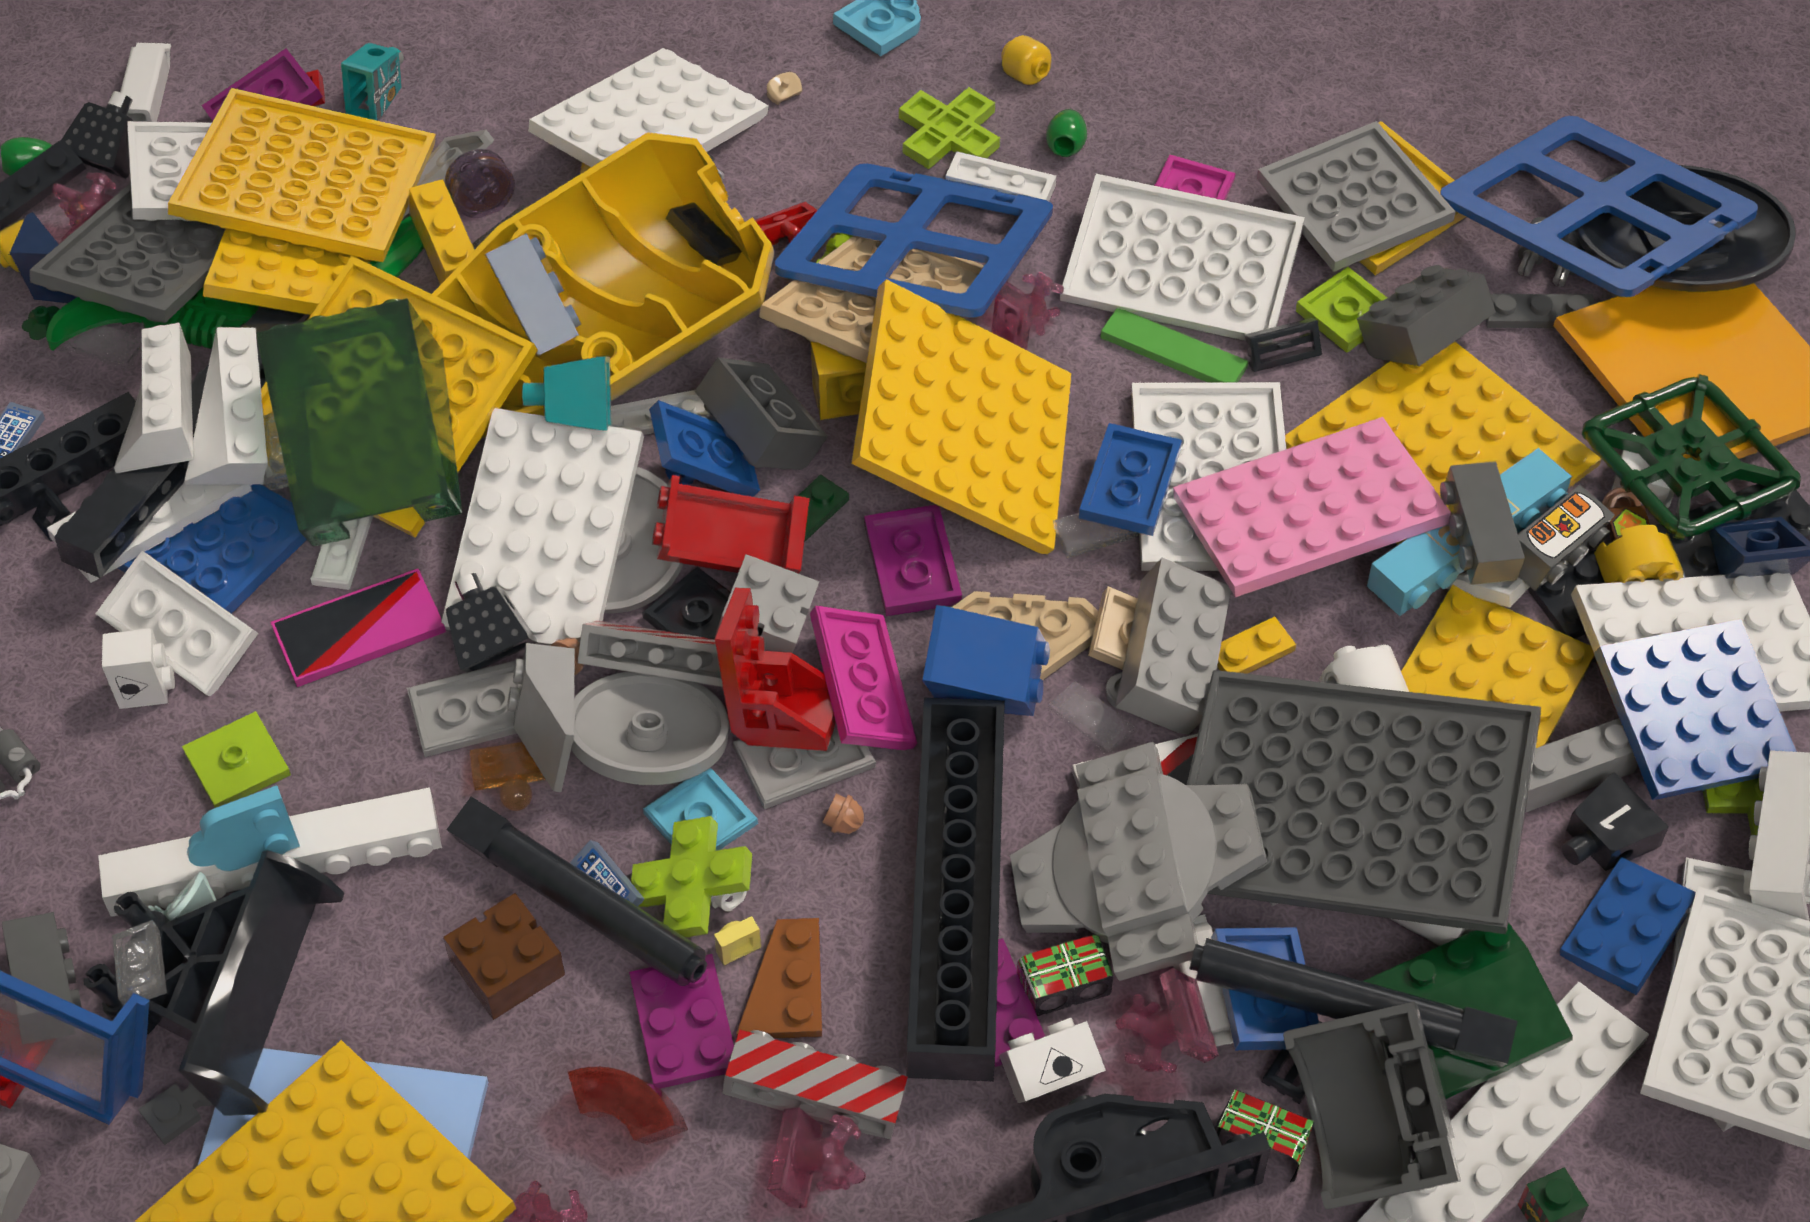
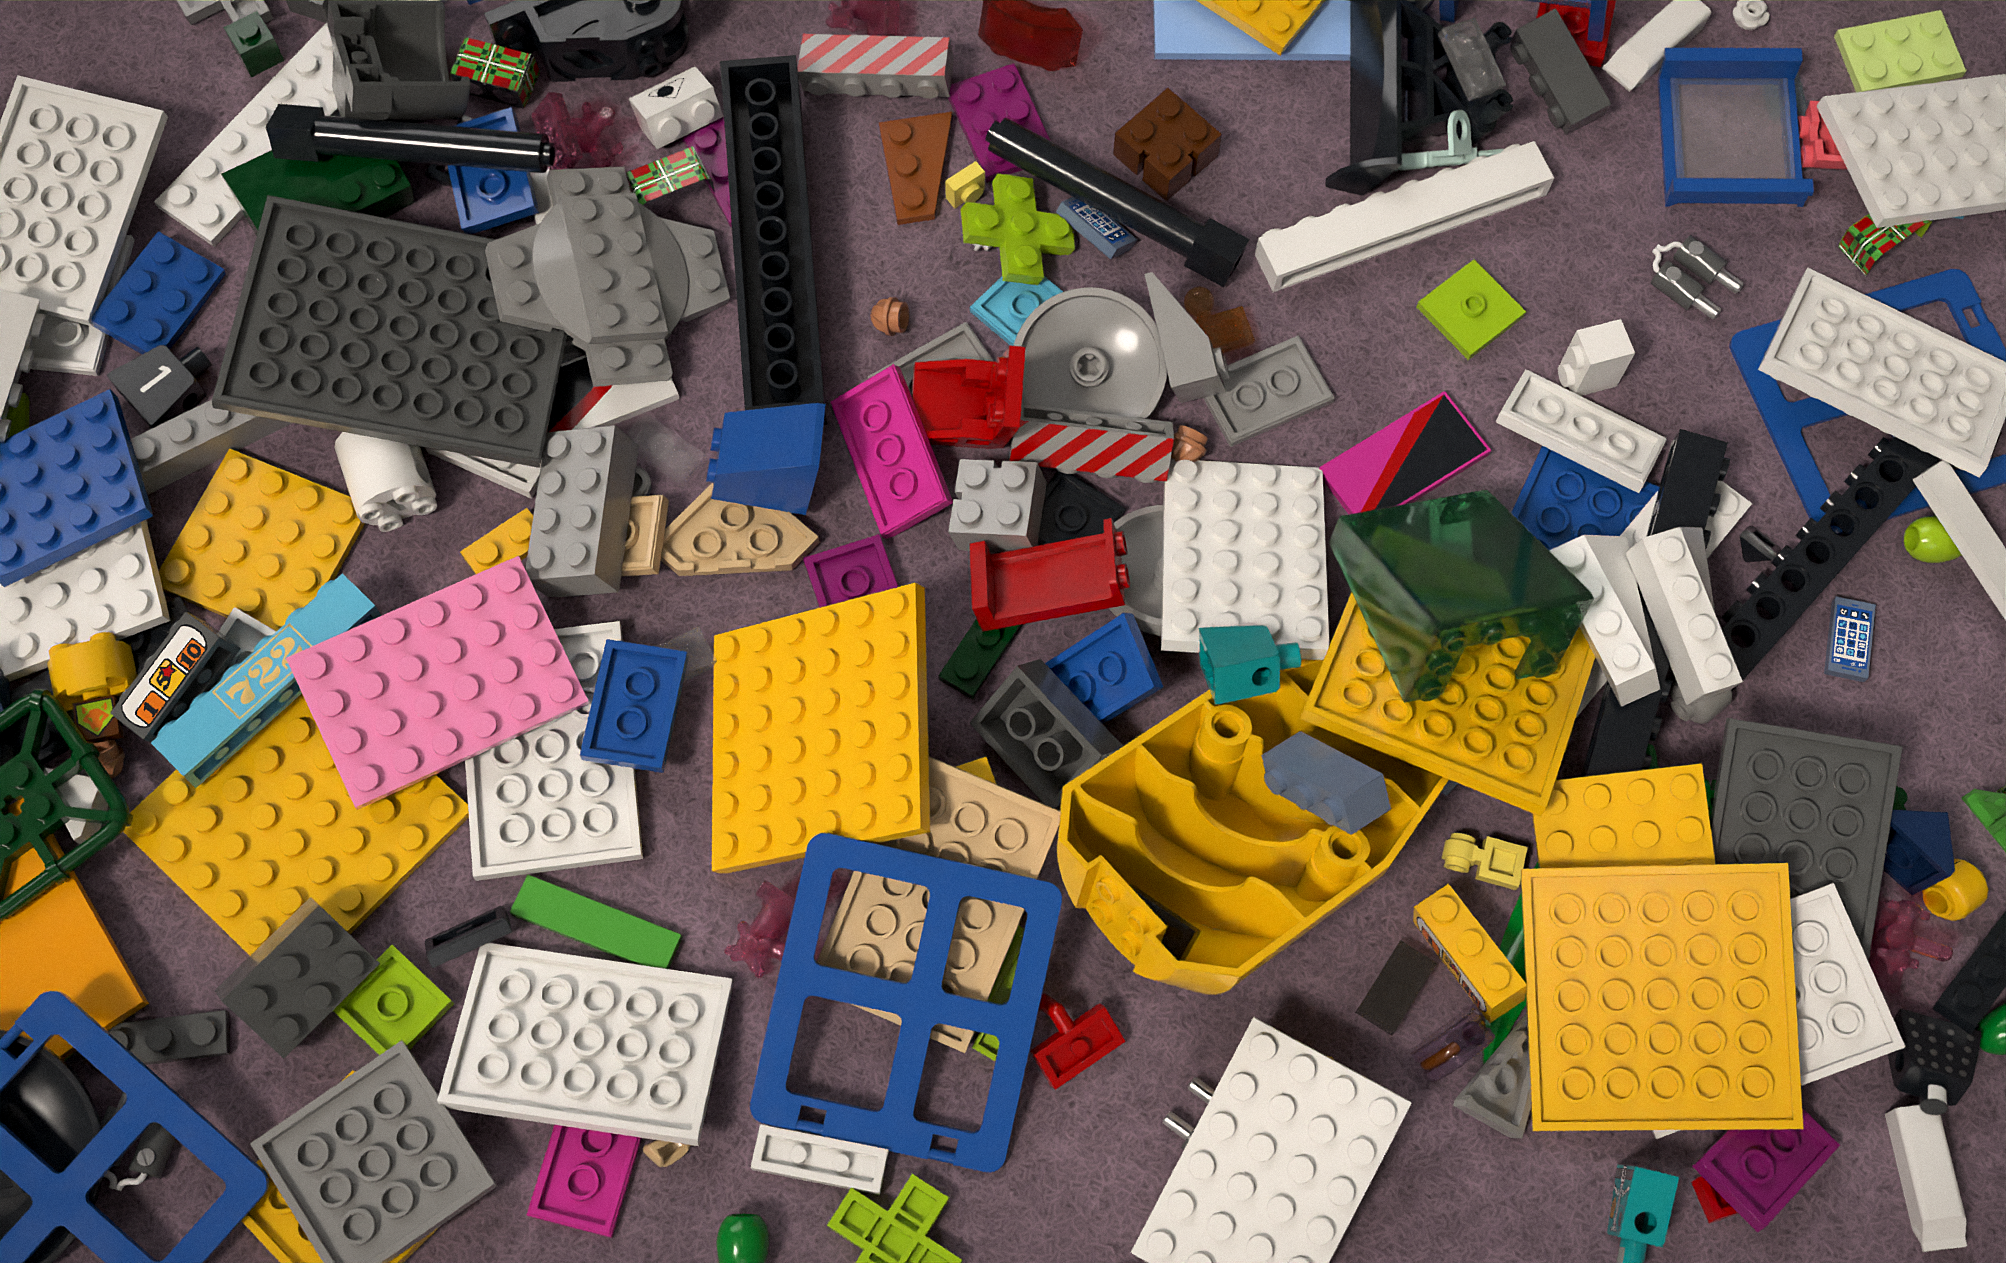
camera: 170 degrees right, 15 degrees up
(241, 830) = (1421, 176): medium azure plate -> none
(485, 625) = (1270, 446): black torso -> none
(1482, 523) = (253, 647): dark grey brick -> none

